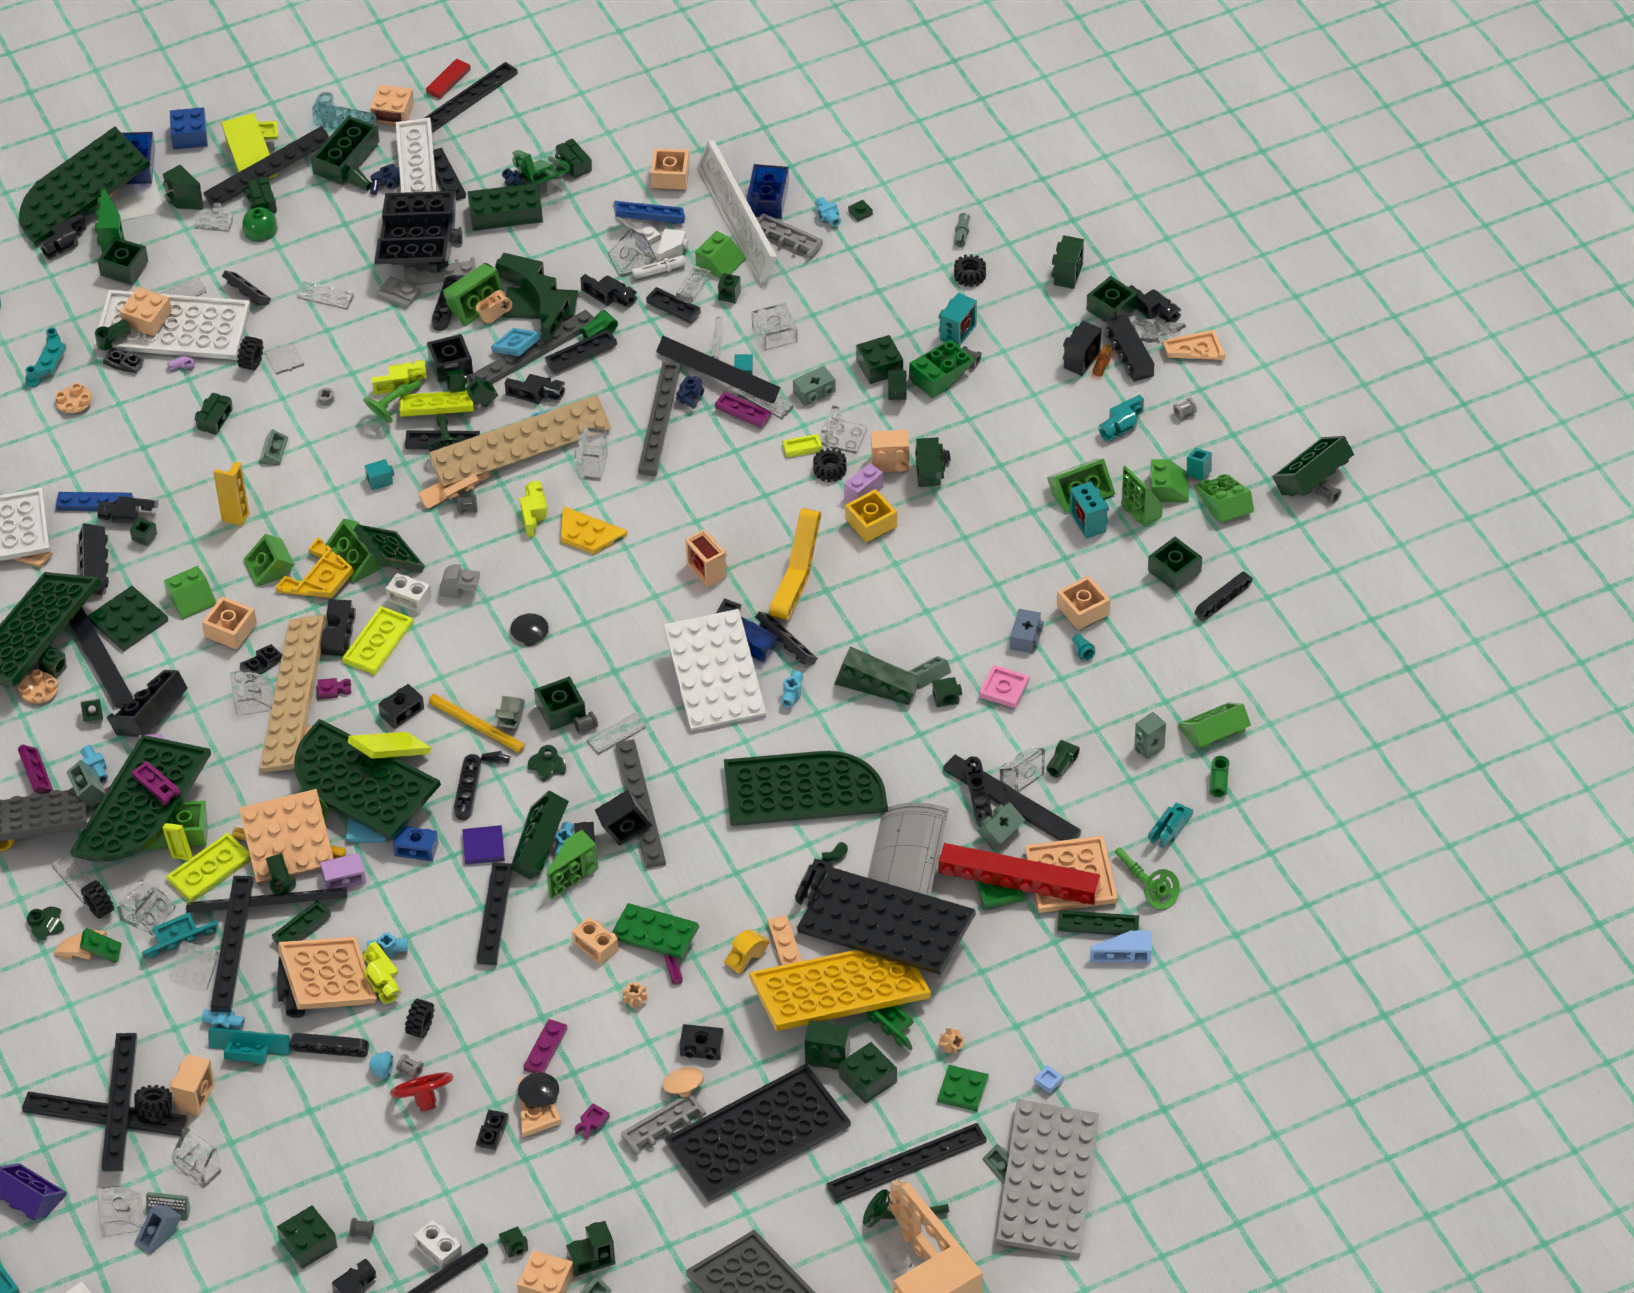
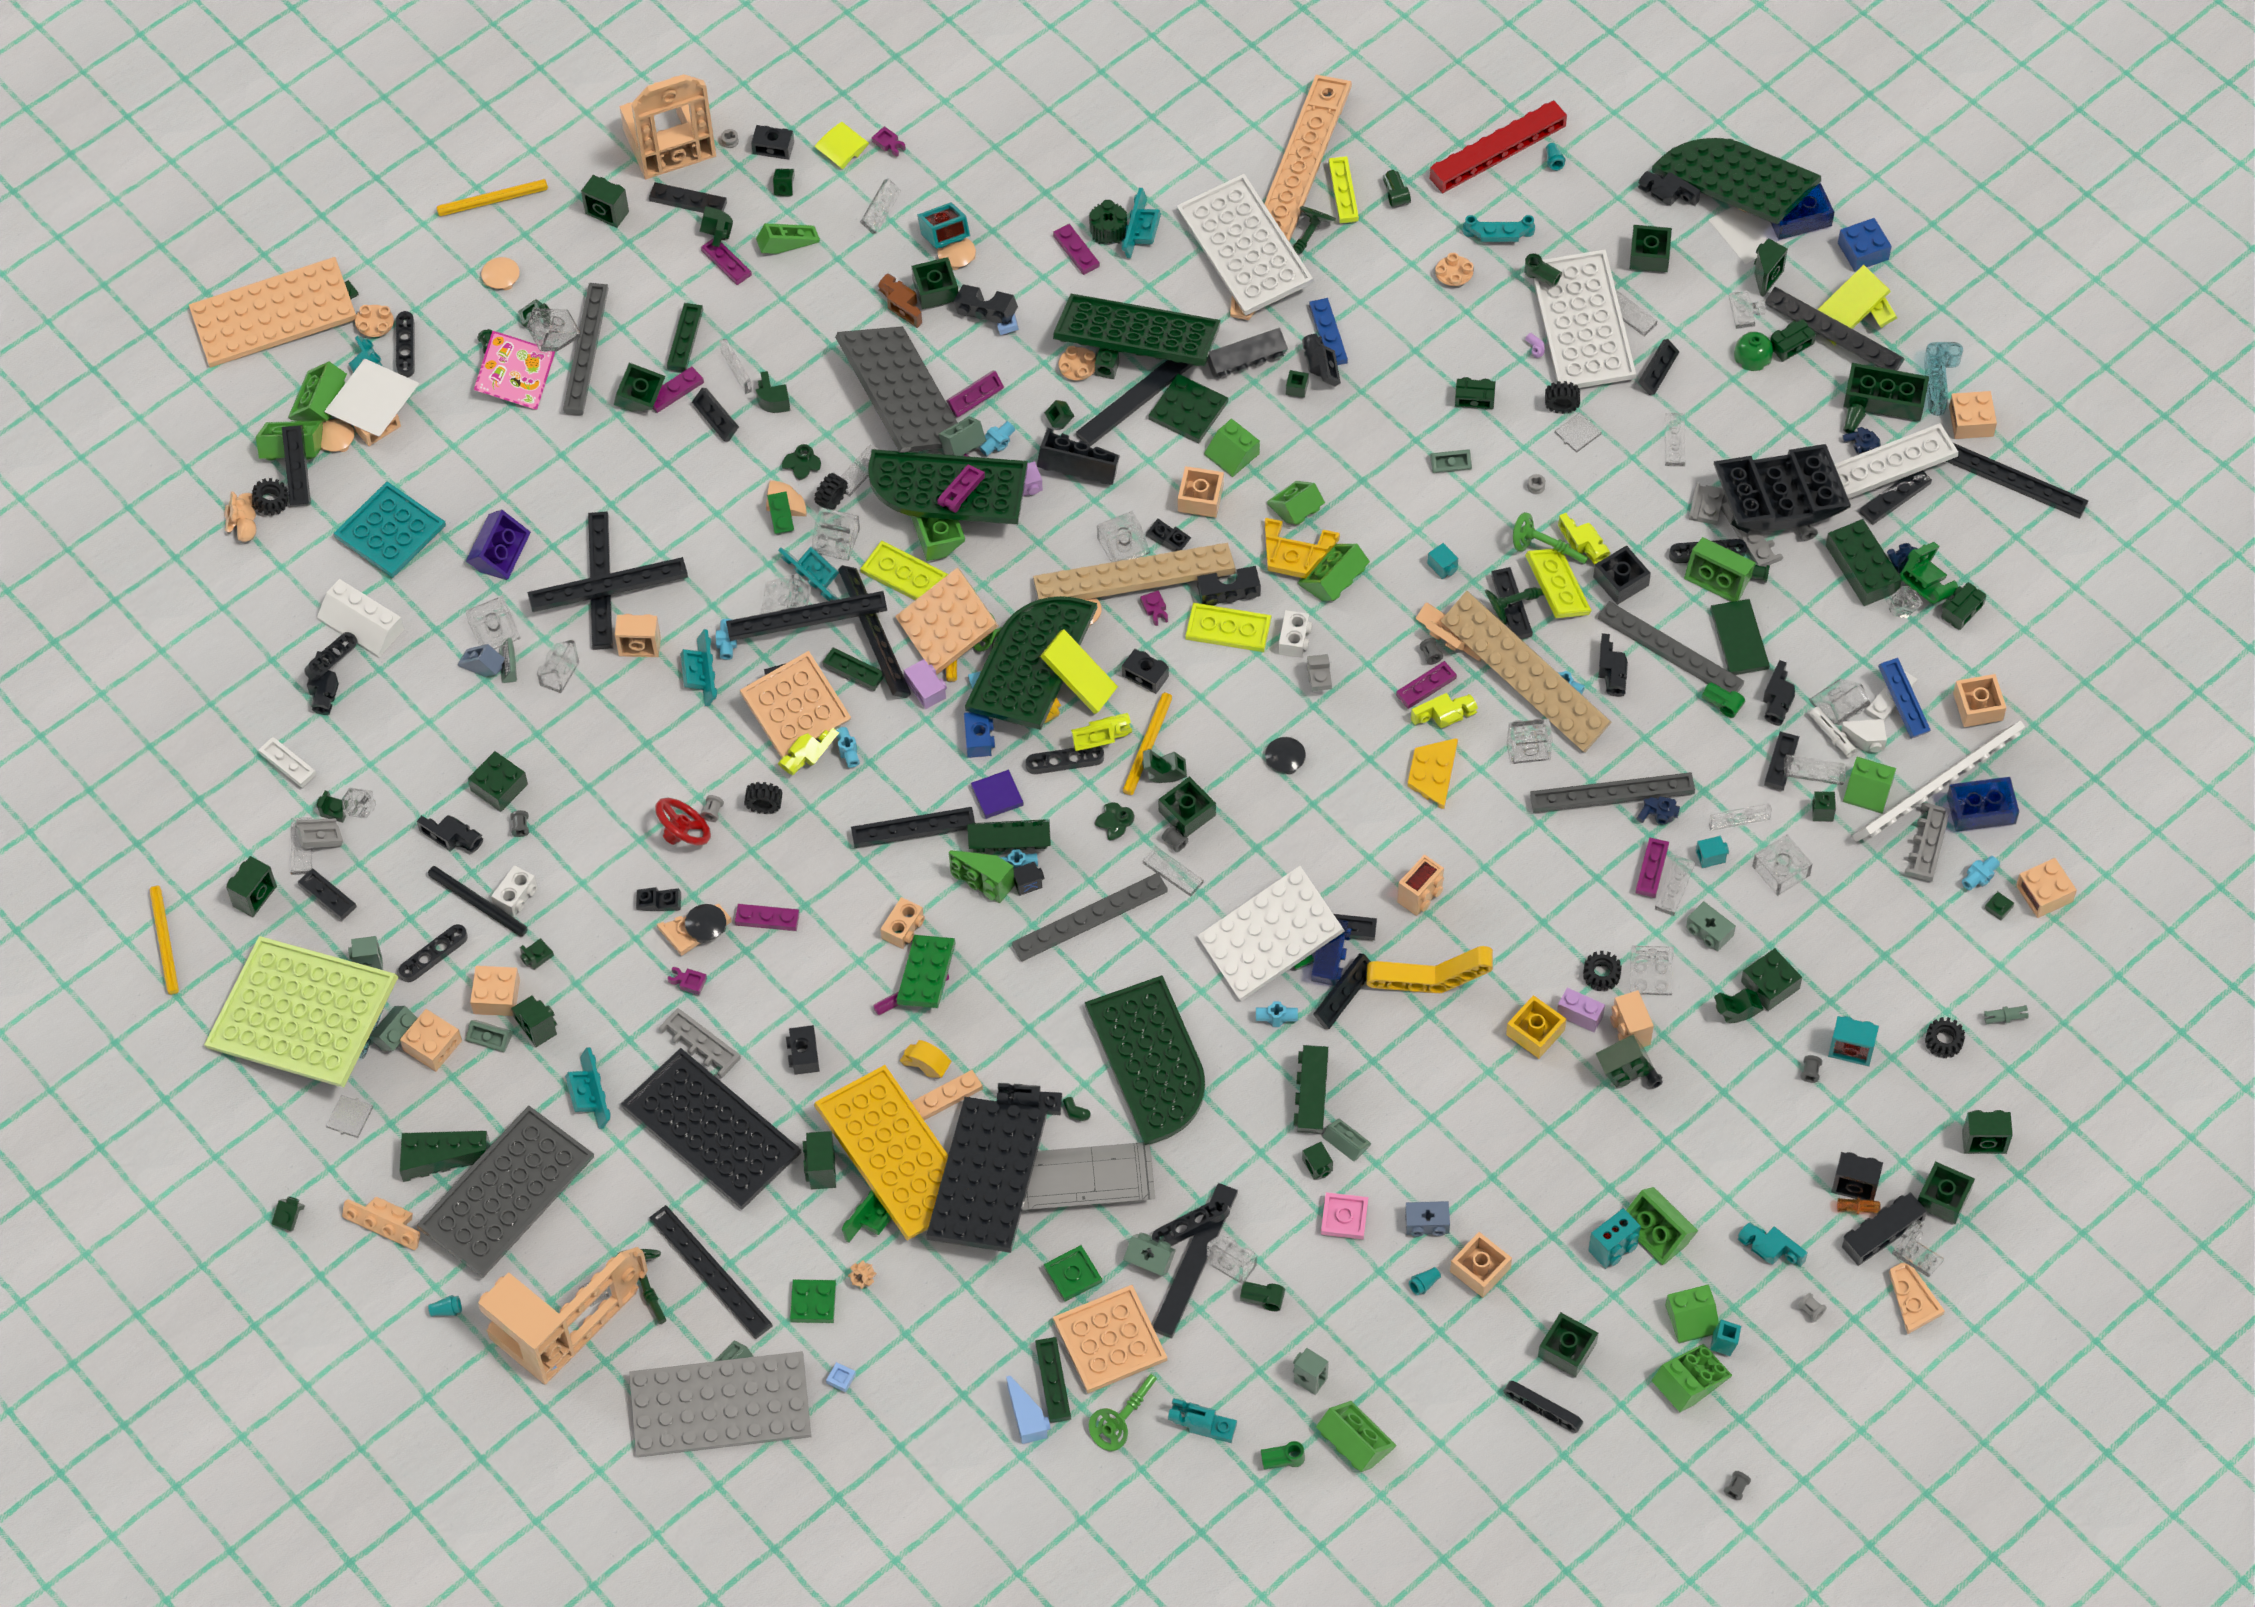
camera: 75 degrees right, 10 degrees up
(109, 221) = (1694, 218): green slope -> none
(125, 362) = (1522, 295): black slope -> none
(146, 311) = (1579, 288): light nougat brick -> none
(153, 1101) = (616, 602): black tyre -> none
(177, 841) = (911, 532): neon yellow tile -> none
(232, 494) = (1351, 440): yellow panel -> none
(281, 880) = (897, 634): dark green piece -> none
(311, 1044) = (719, 734): black beam -> none
(382, 1064) = (706, 784): medium azure cone -> none
(388, 548) = (1337, 596): dark green plate -> none
(448, 78) = (2041, 455): red tile -> none
(454, 748) = (1101, 732): none -> neon yellow plate
(456, 380) = (1593, 590): dark green plate -> none
(481, 391) = (1580, 612): dark green brick -> none
(492, 307) = (1711, 593): light nougat piece -> none
(495, 757) = (1109, 773): black bar -> none
(500, 515) = (1426, 684): none -> magenta plate
(516, 342) = (1669, 628): medium azure tile -> none
(543, 288) = (1727, 644): dark green arch -> none
(580, 351) = (1682, 693): black plate -> none
(623, 817) = (1049, 901): black brick -> none
(634, 994) = (845, 975): light nougat gear -> none
(682, 1221) = (587, 1090): none -> teal bracket
(683, 1081) = (752, 1045): light nougat dish -> none
(718, 369) = (1694, 826): black tile -> none
(802, 445) = (1622, 936): neon yellow tile -> none
(857, 175) = (2046, 887): none -> light nougat piece
(868, 1072) = (803, 1207): dark green brick -> none
(939, 368) = (1779, 1042): green slope -> none
(1019, 873) = (1084, 1285): red brick -> none
(1139, 499) = (1649, 1285): bright green slope -> none
(1155, 304) = (1962, 1240): black plate -> none
(1313, 466) = (1759, 1457): dark green brick -> none

